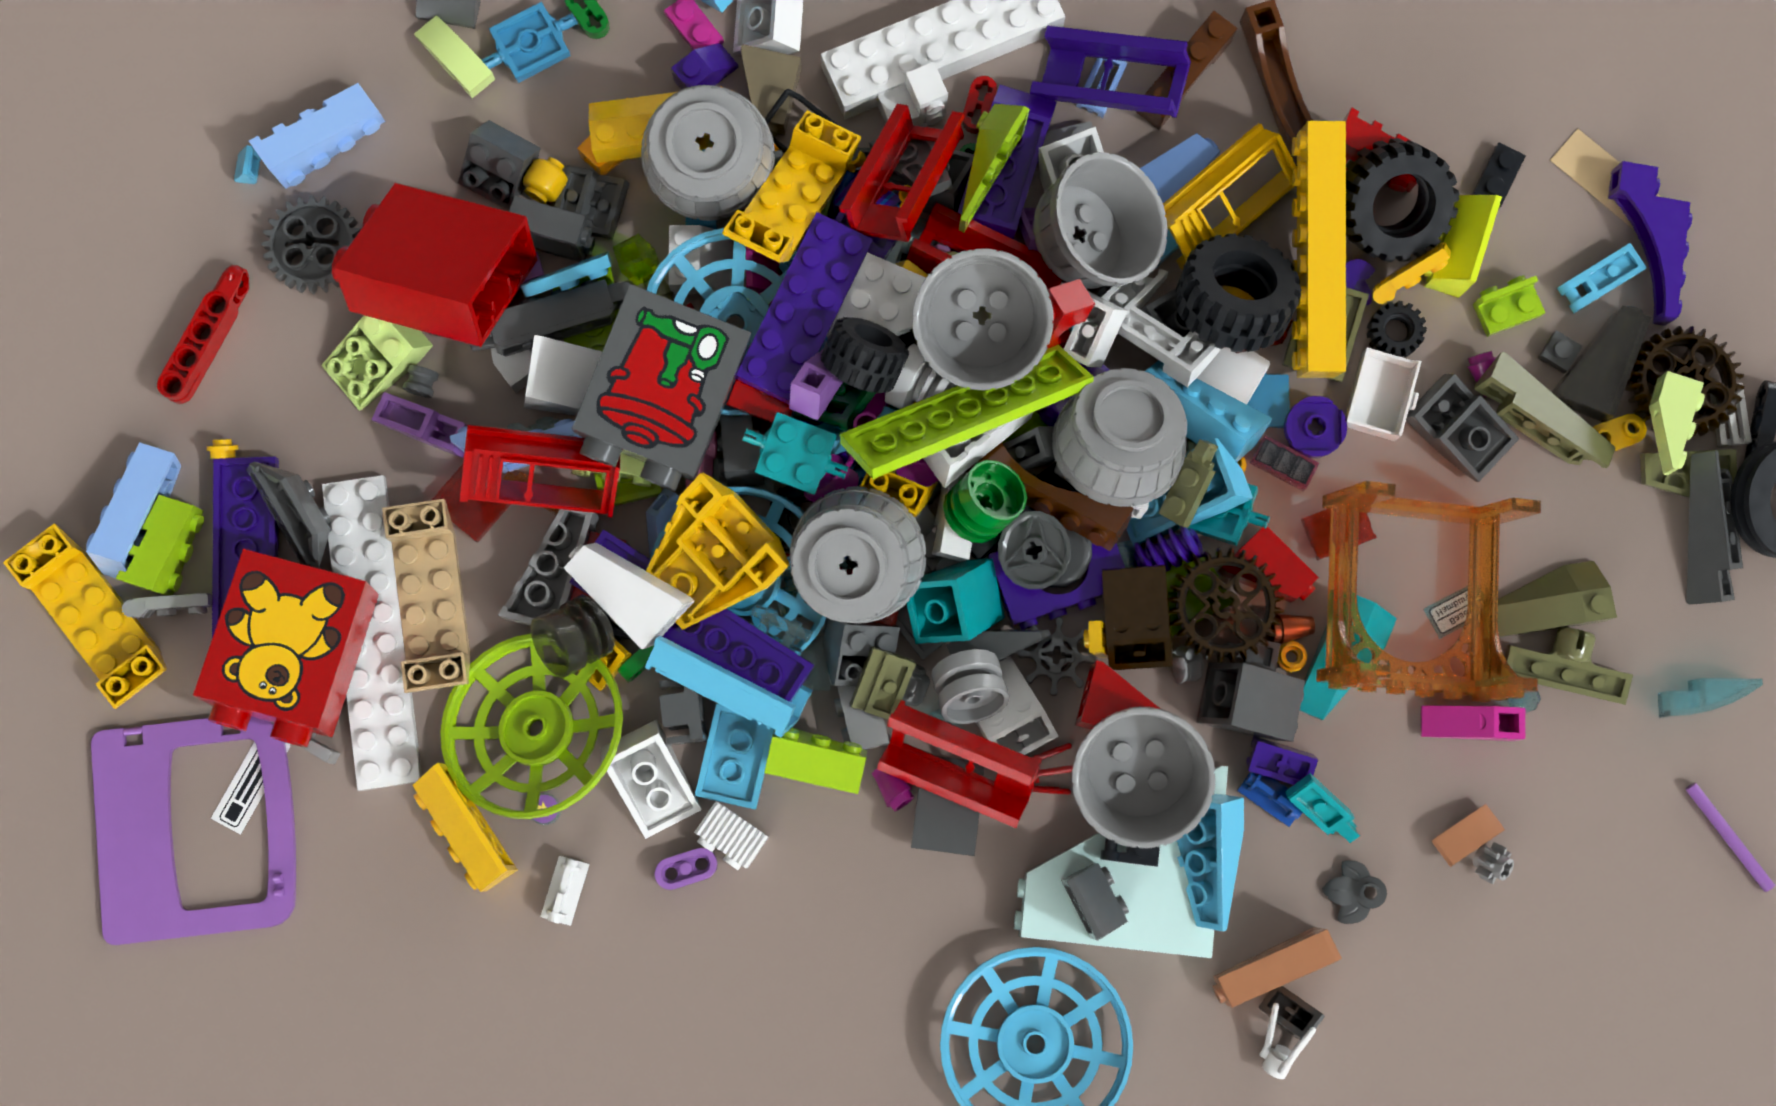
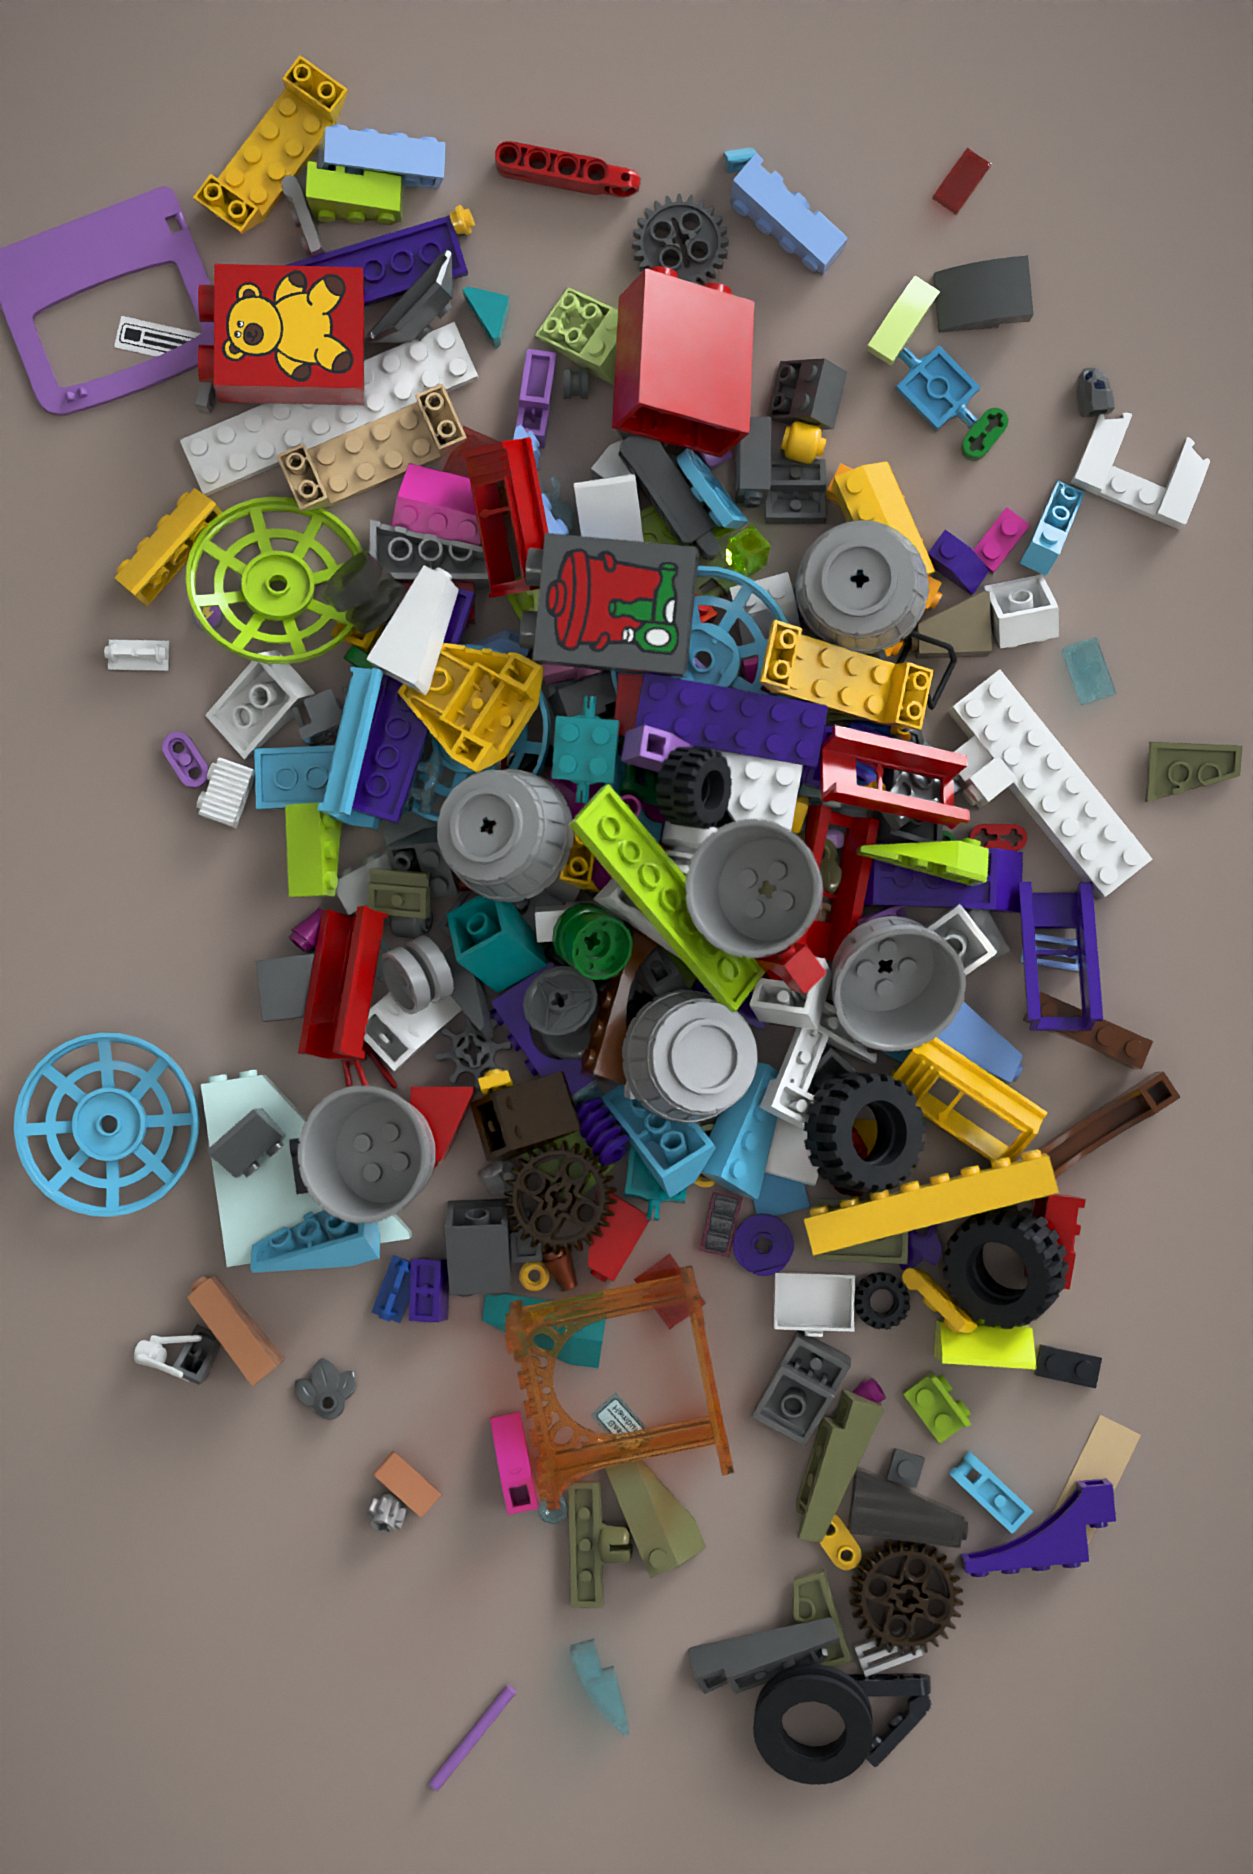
camera: 75 degrees right, 5 degrees up
(321, 447) = (490, 311): none -> teal slope
(503, 544) = (437, 505): none -> dark pink slope
(1190, 485) = (663, 1134): olive hinge -> none
(1323, 807) = (394, 1338): teal hinge -> none
(1672, 416) = (867, 1587): yellowish green slope -> none

